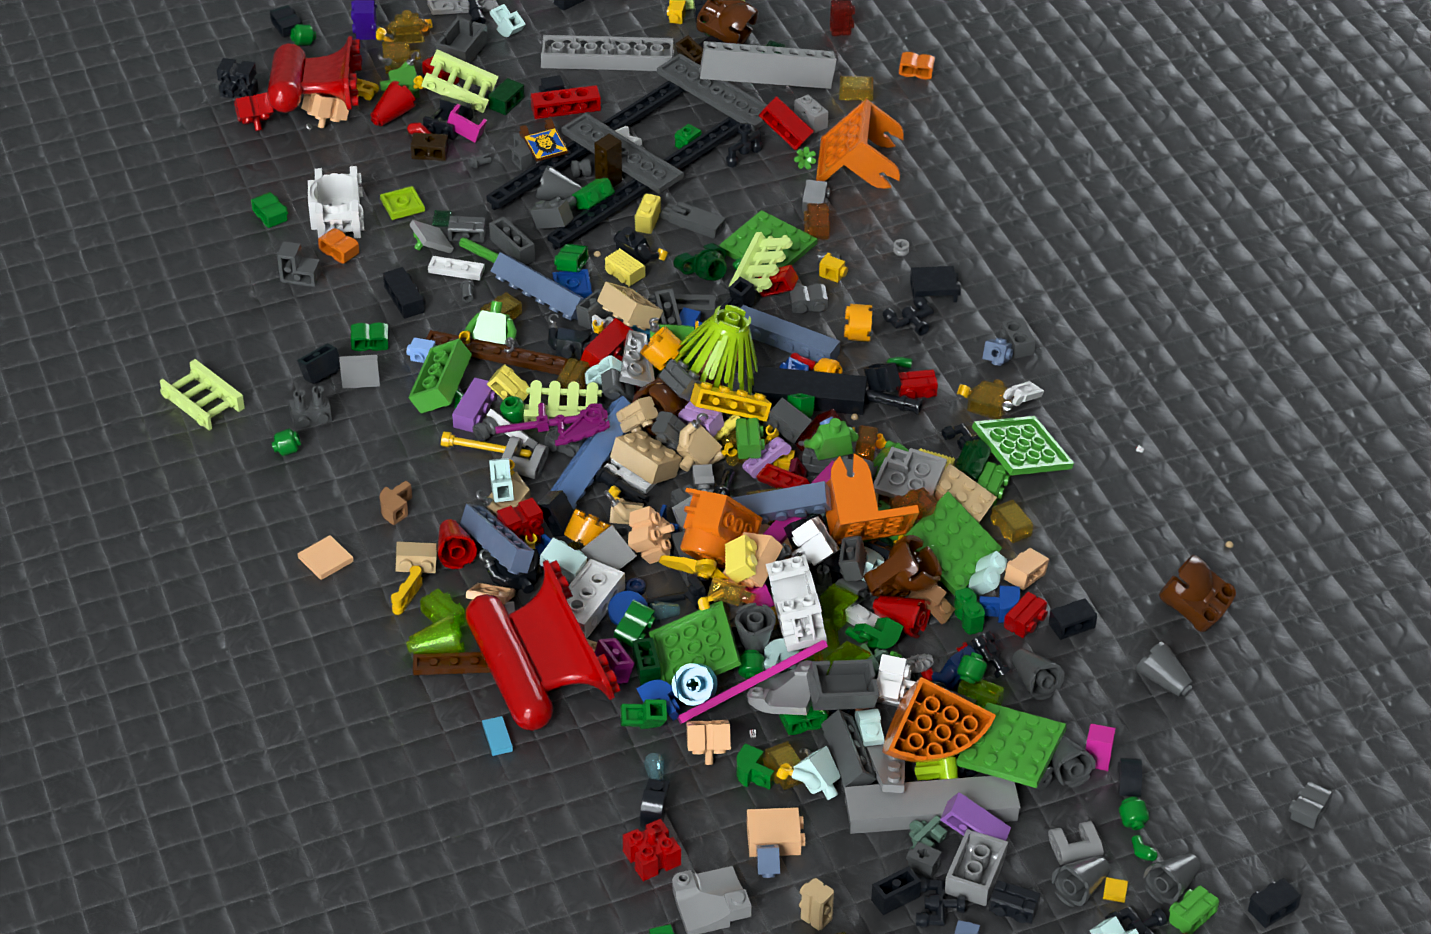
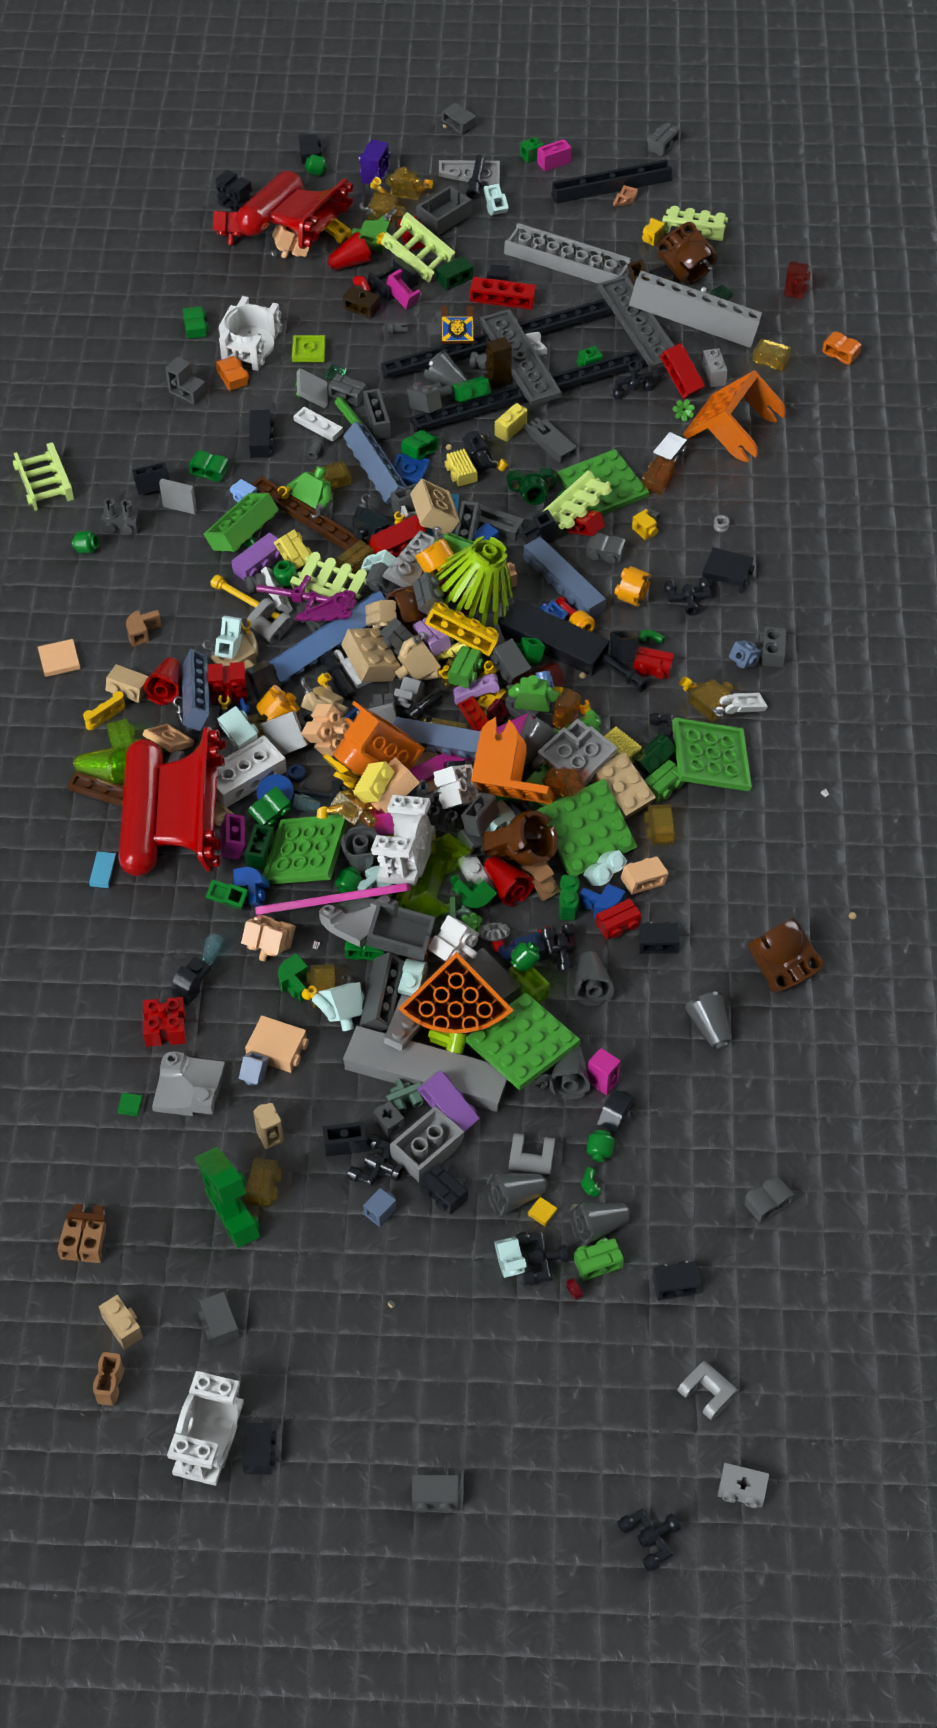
camera: 25 degrees right, 10 degrees up
(685, 676) = (281, 883): brick -> none

